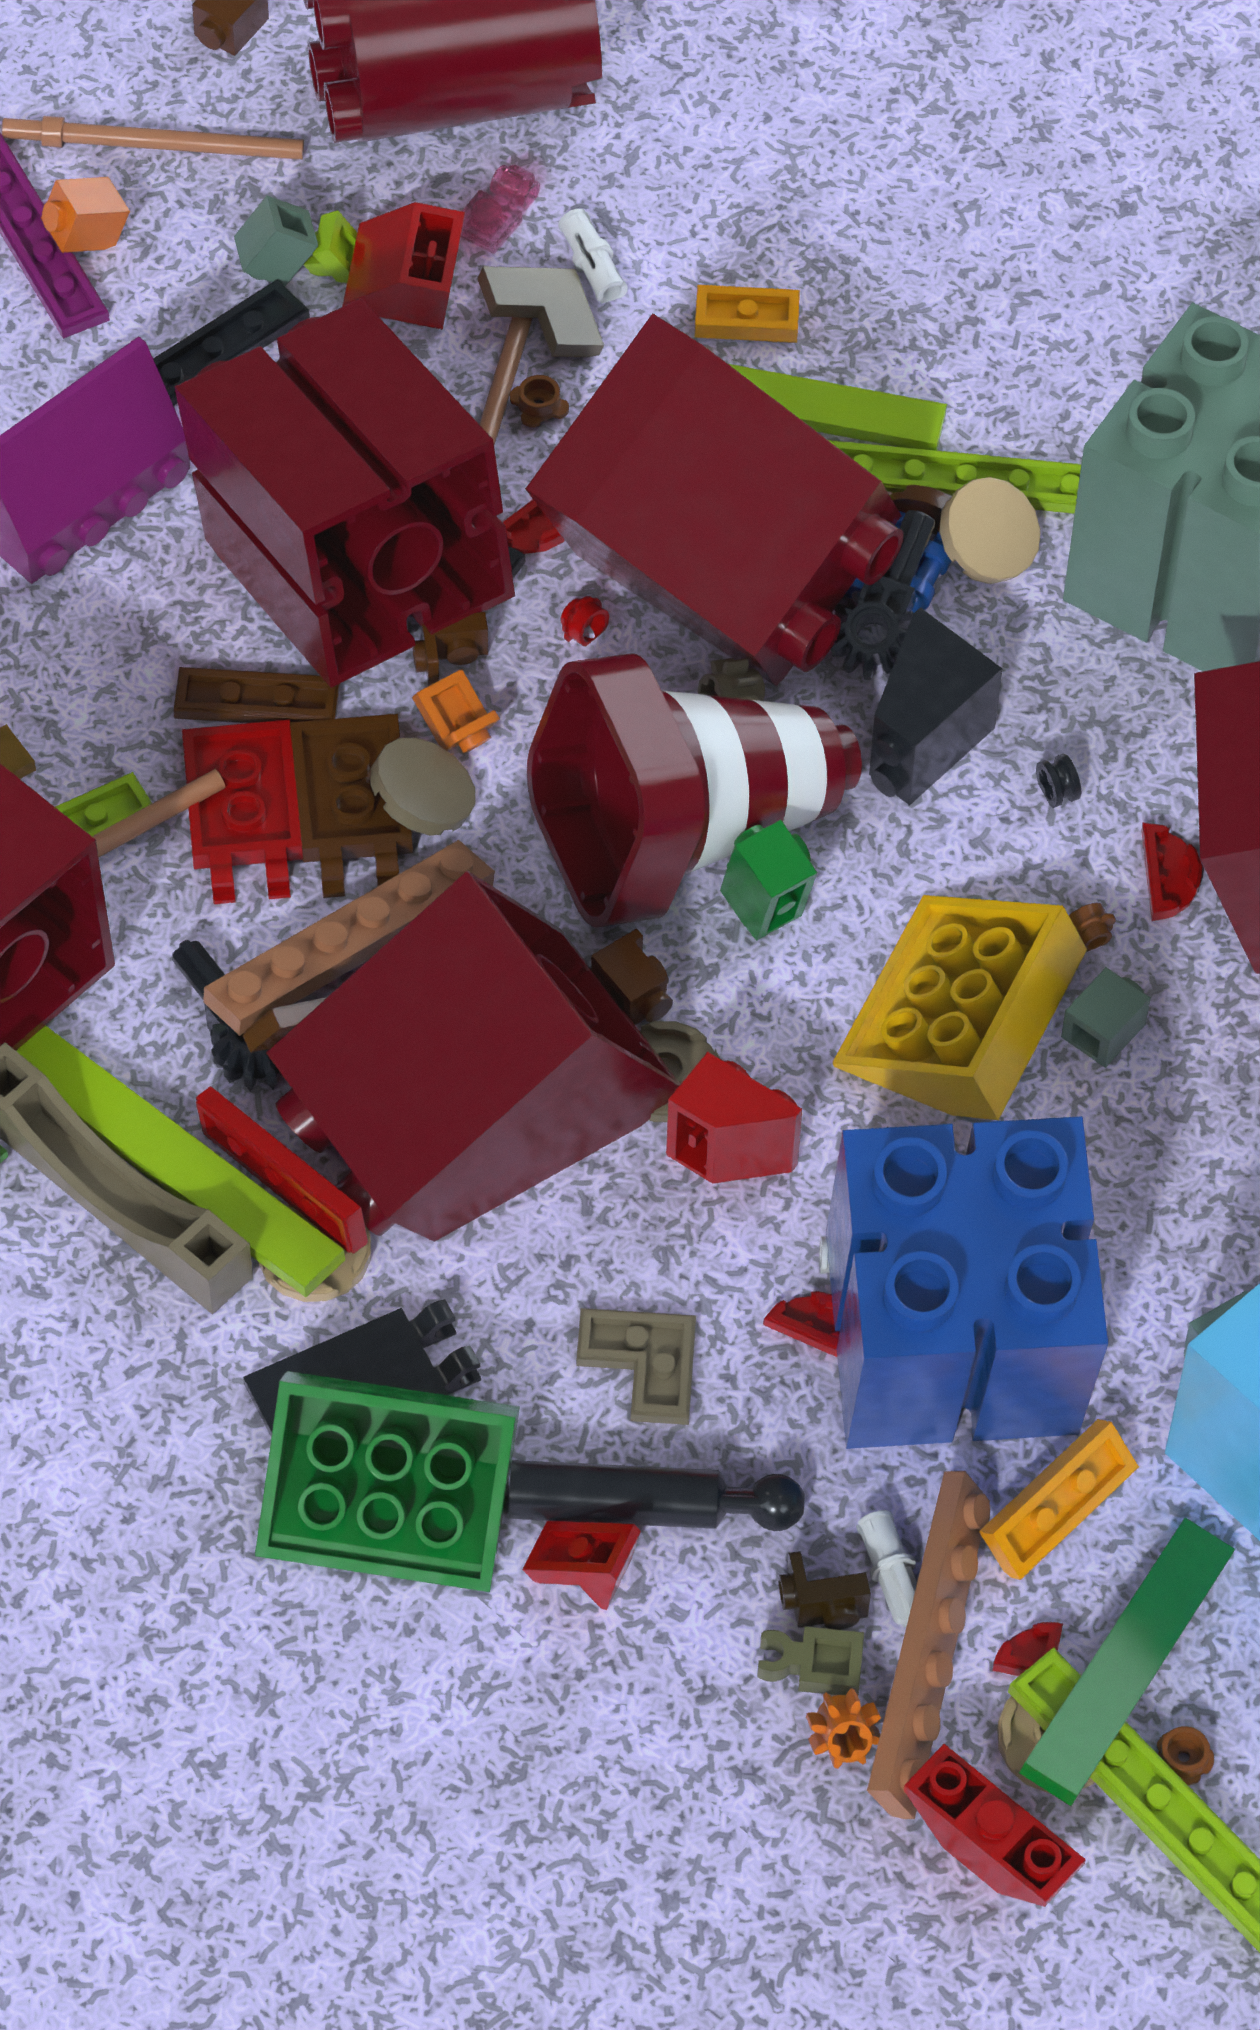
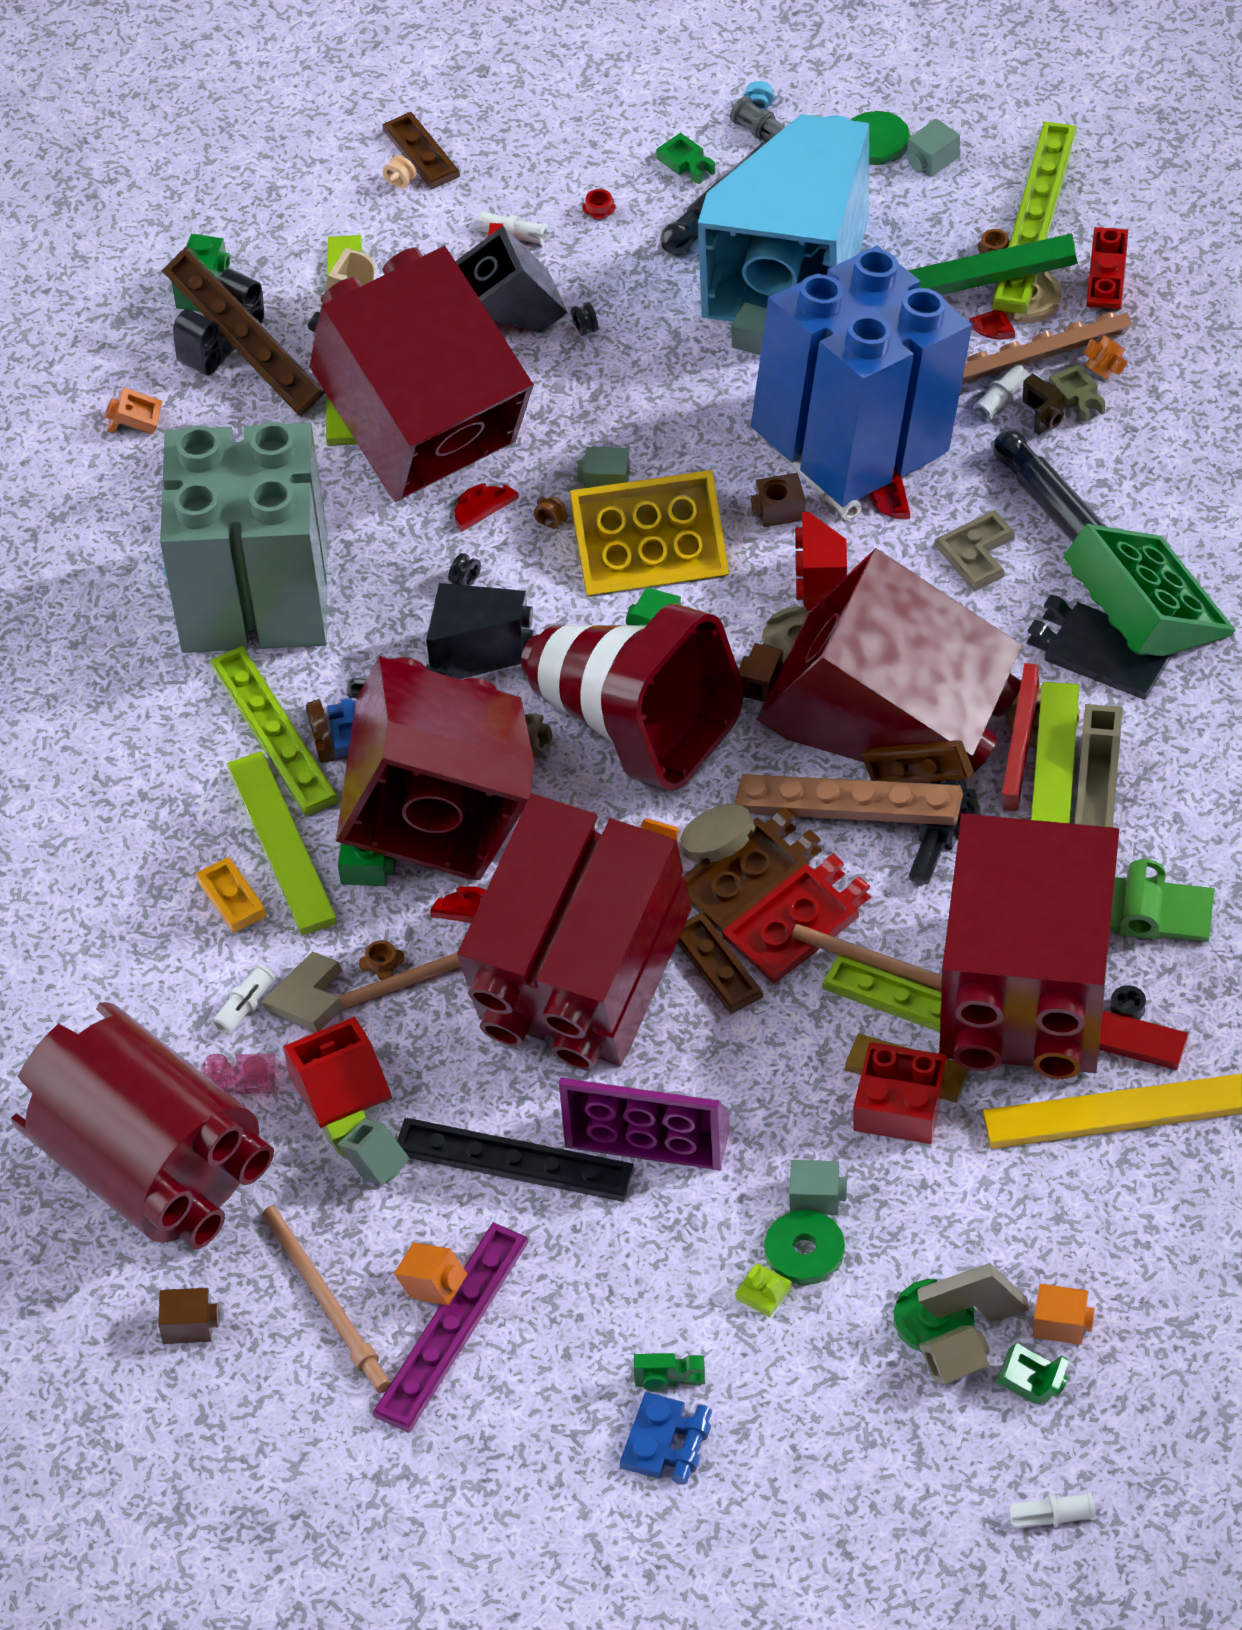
camera: 120 degrees left, 5 degrees down
(584, 1556) = (1114, 491): red slope -> none
(990, 530) = (313, 681): tan tile -> none

